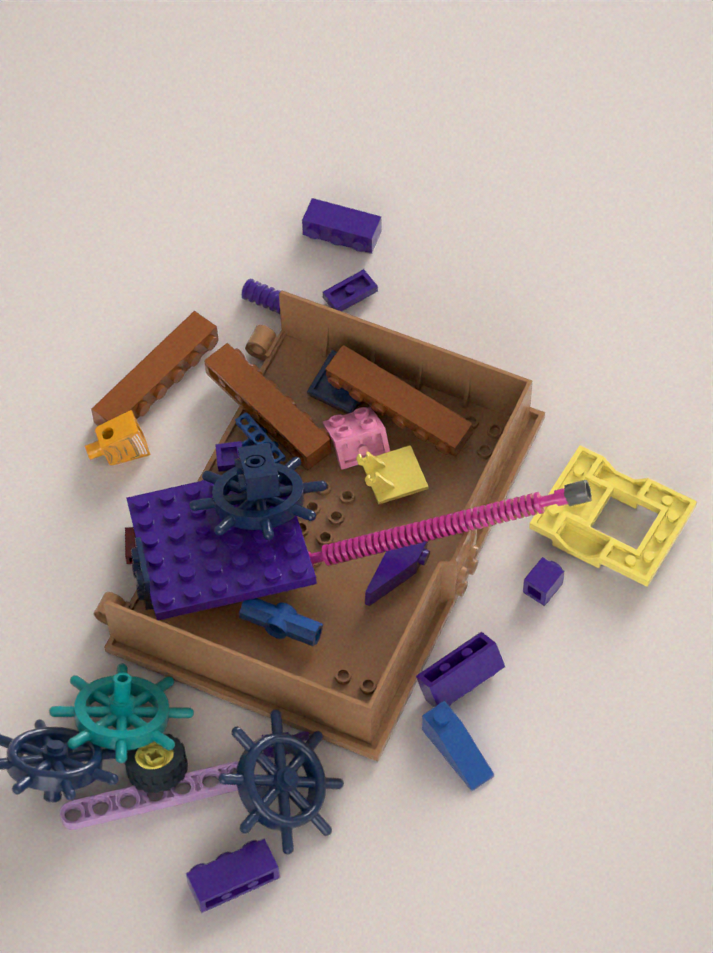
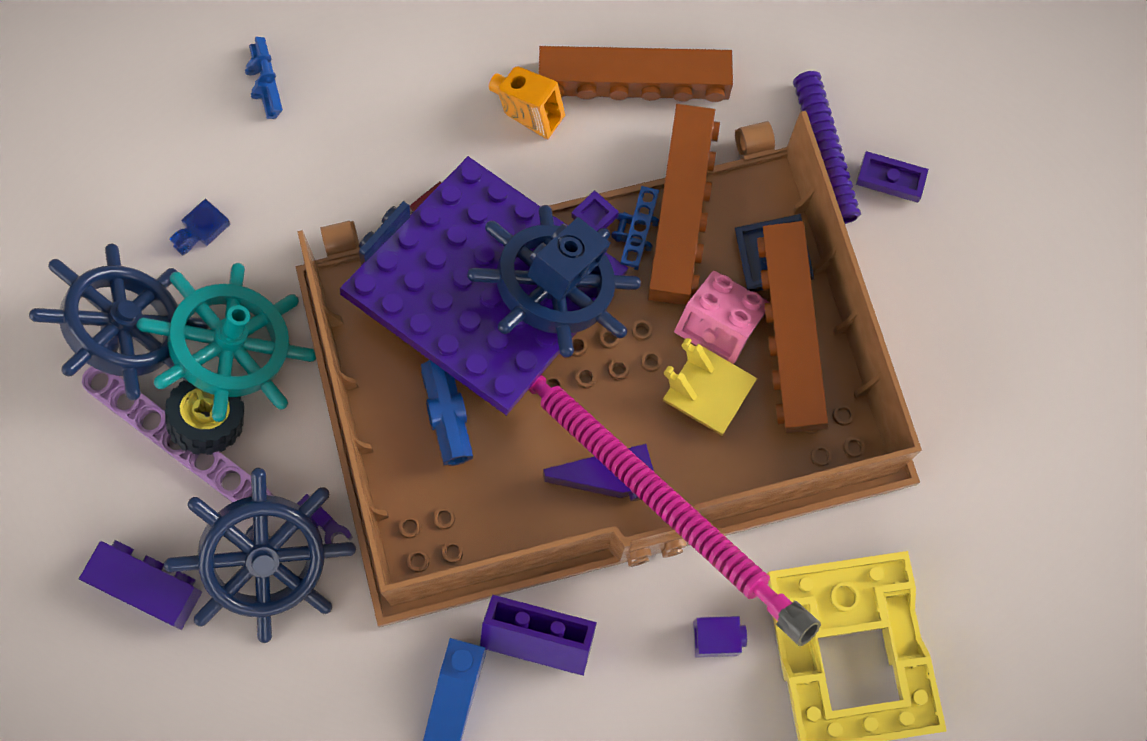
camera: 45 degrees right, 15 degrees up
(21, 685) = (201, 224): none -> clear blue plate
(341, 225) = (960, 108): dark purple brick -> none

